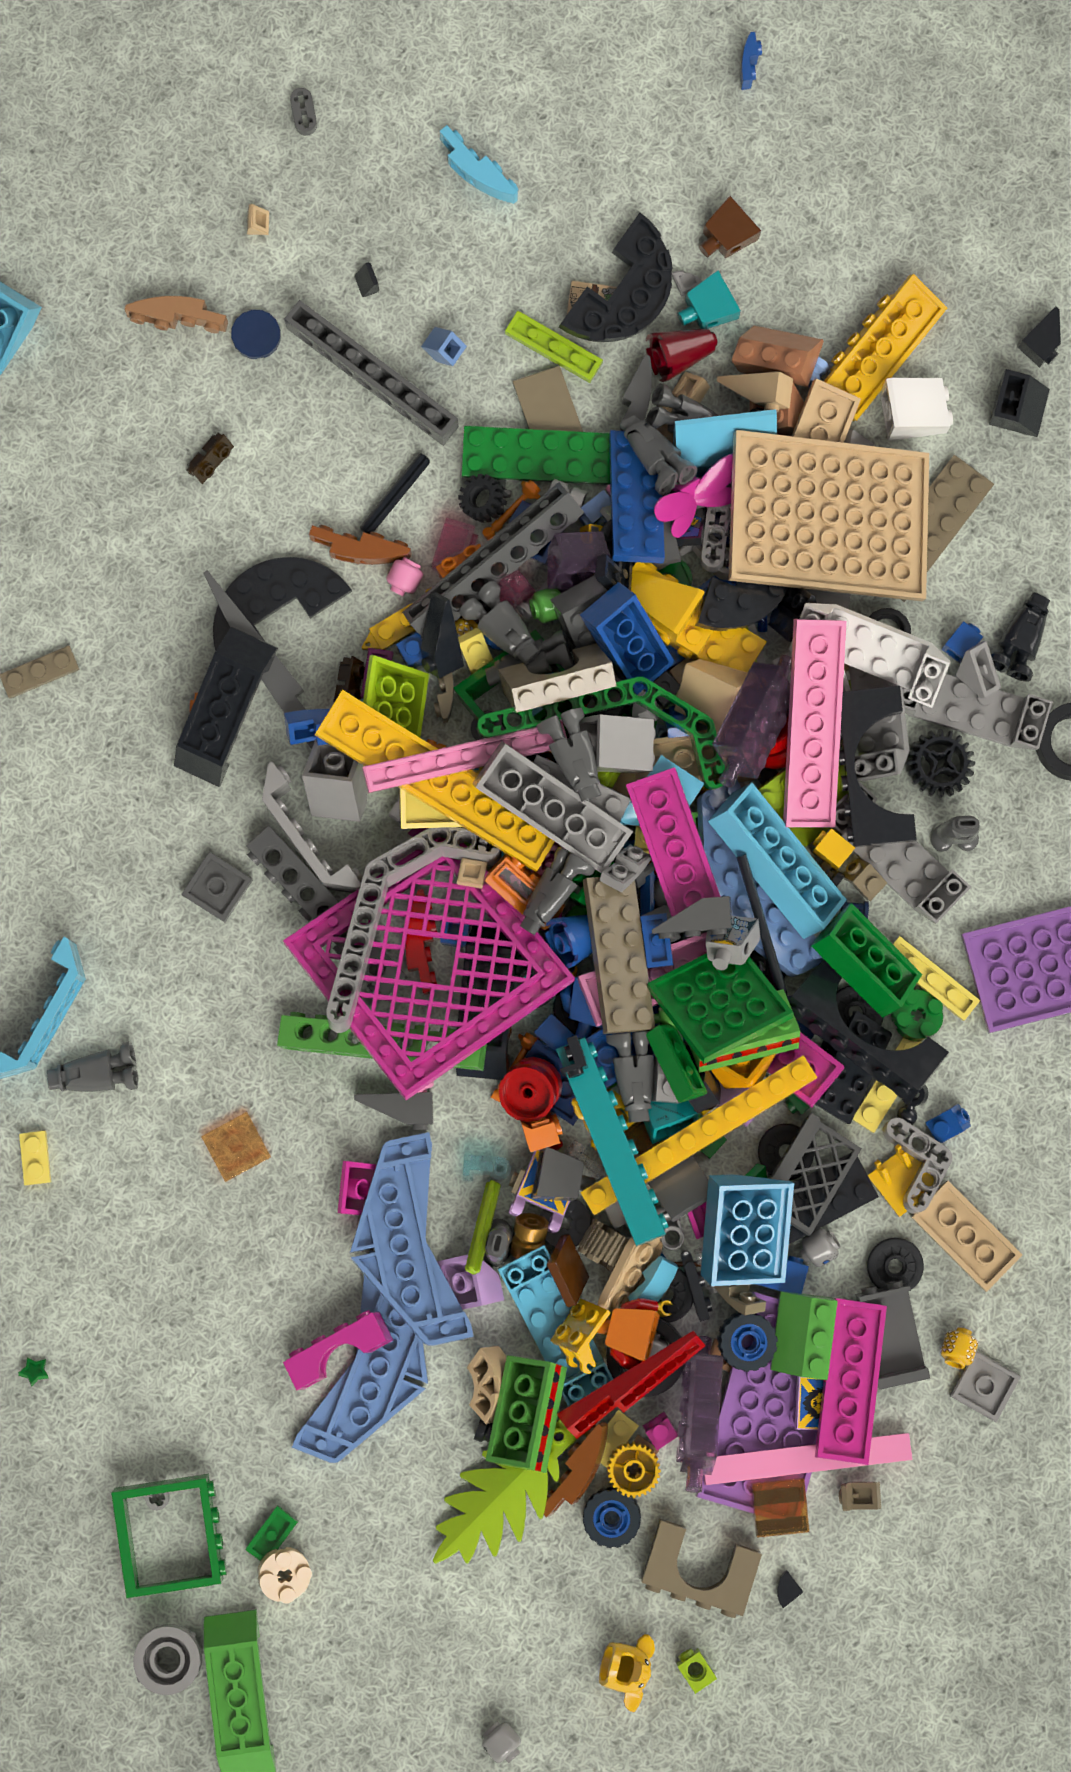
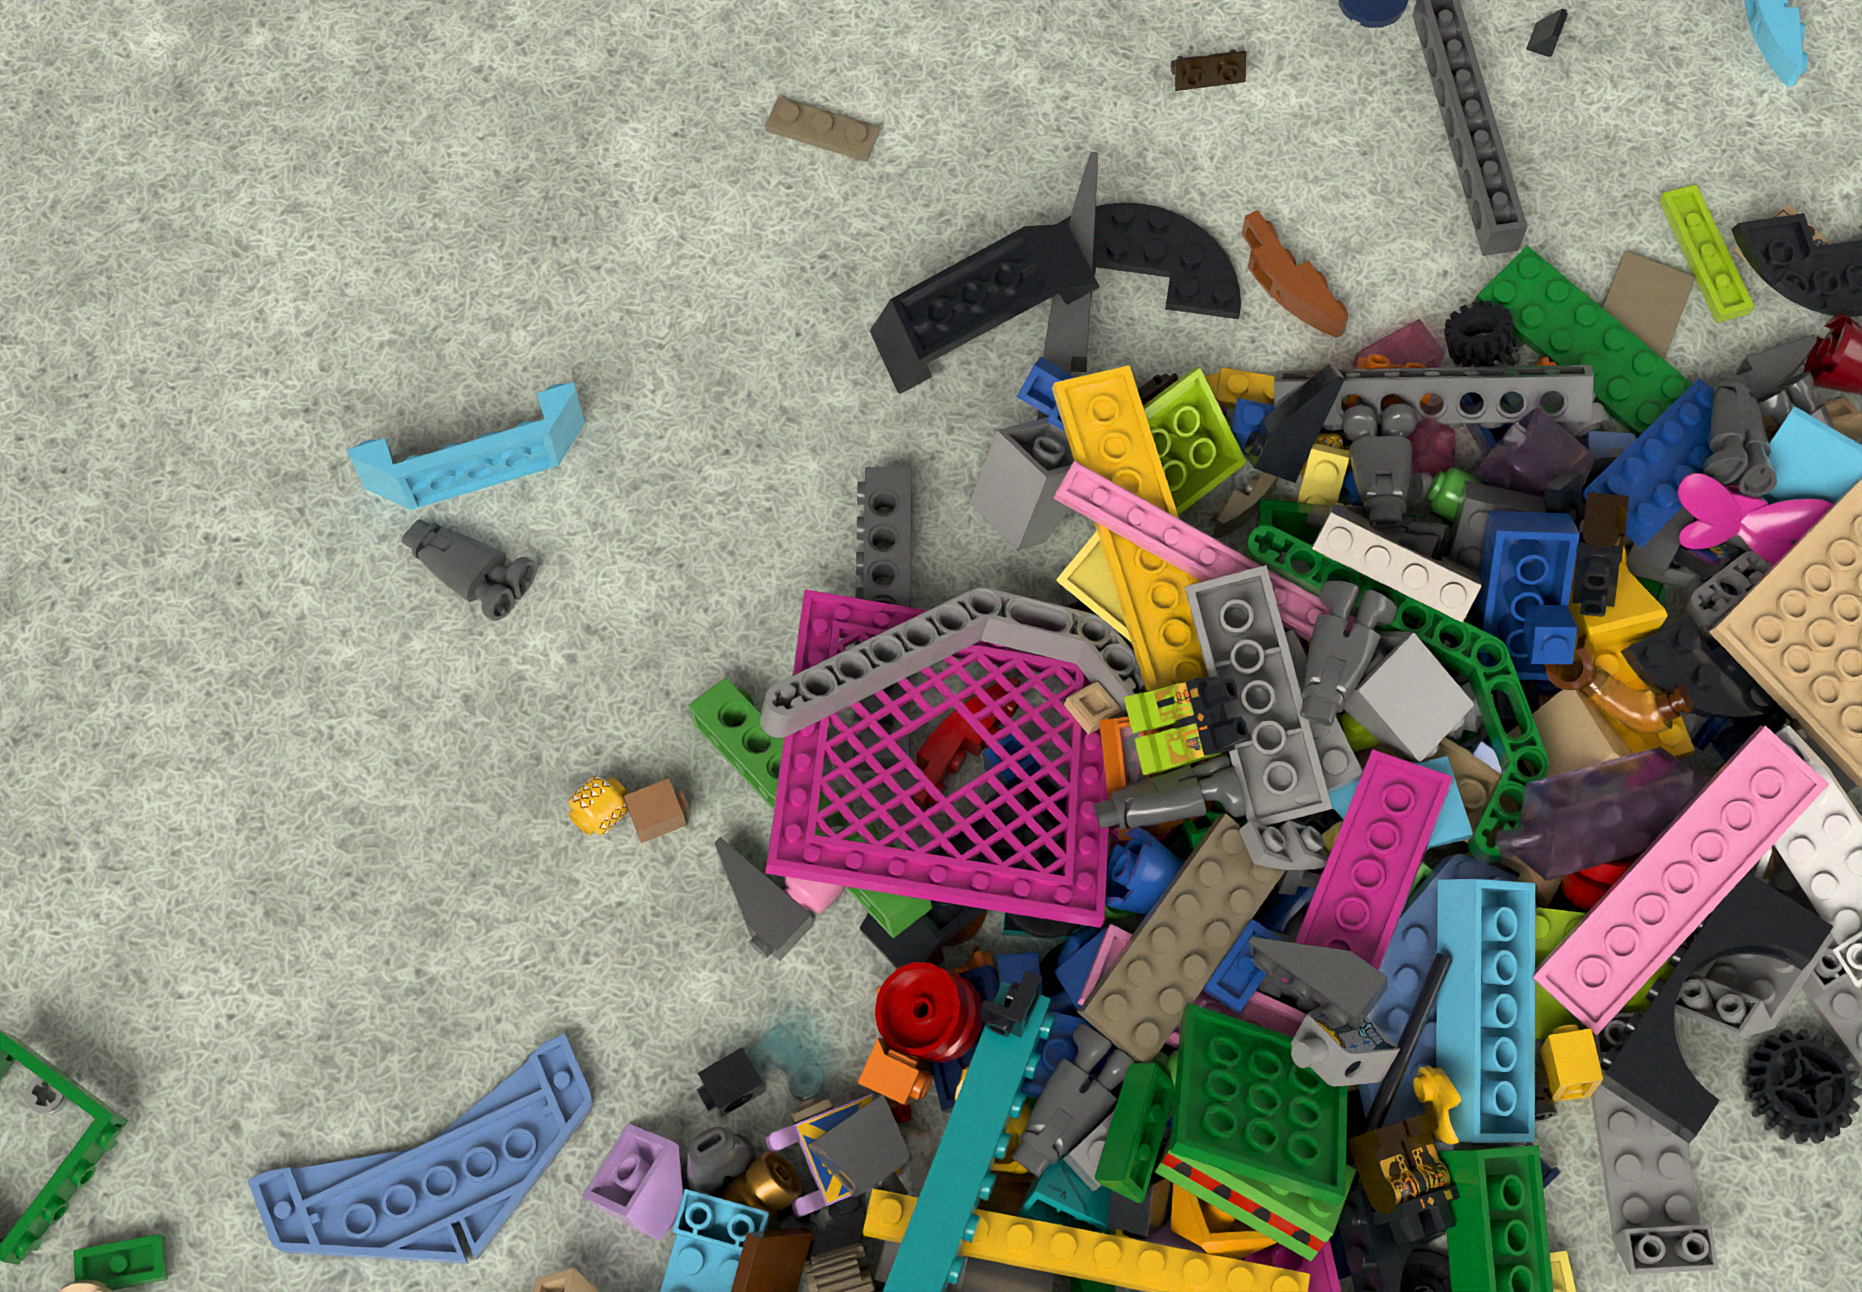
camera: 45 degrees right, 15 degrees down
(34, 1371) = (71, 823): green piece -> none
(35, 1158) = (313, 599): light yellow plate -> none
(217, 887) = (792, 489): dark grey plate -> none
(236, 1146) = (534, 782): clear orange tile -> none
(275, 787) = (949, 437): light grey slope -> none
(279, 1131) = (597, 805): none -> yellow head
(309, 1107) = (657, 809): none -> medium nougat brick
(309, 1365) = (363, 1101): dark pink arch -> none
(354, 1186) = (622, 952): dark pink slope -> none
(395, 494) = (1384, 259): black axle -> none
(402, 1260) = (586, 1080): medium blue wing -> none
(404, 576) = (1313, 345): bright pink head -> none
(444, 346) = (1576, 154): medium blue brick -> none
(466, 1202) = (729, 1083): none -> black brick
(482, 1227) = (731, 1118): lime axle -> none
(530, 852) = (1200, 721): none -> hips
(650, 593) = (1600, 552): none -> hips
(658, 651) = (1549, 634): none -> blue brick
(721, 650) = (1637, 709): none -> piece
(788, 921) = (1439, 1096): none -> yellow plate
(807, 972) = (1405, 1177): none -> hips
(864, 878) = (1579, 1141): dark tan bracket -> none
(957, 830) = (1764, 1182): dark grey piece -> none

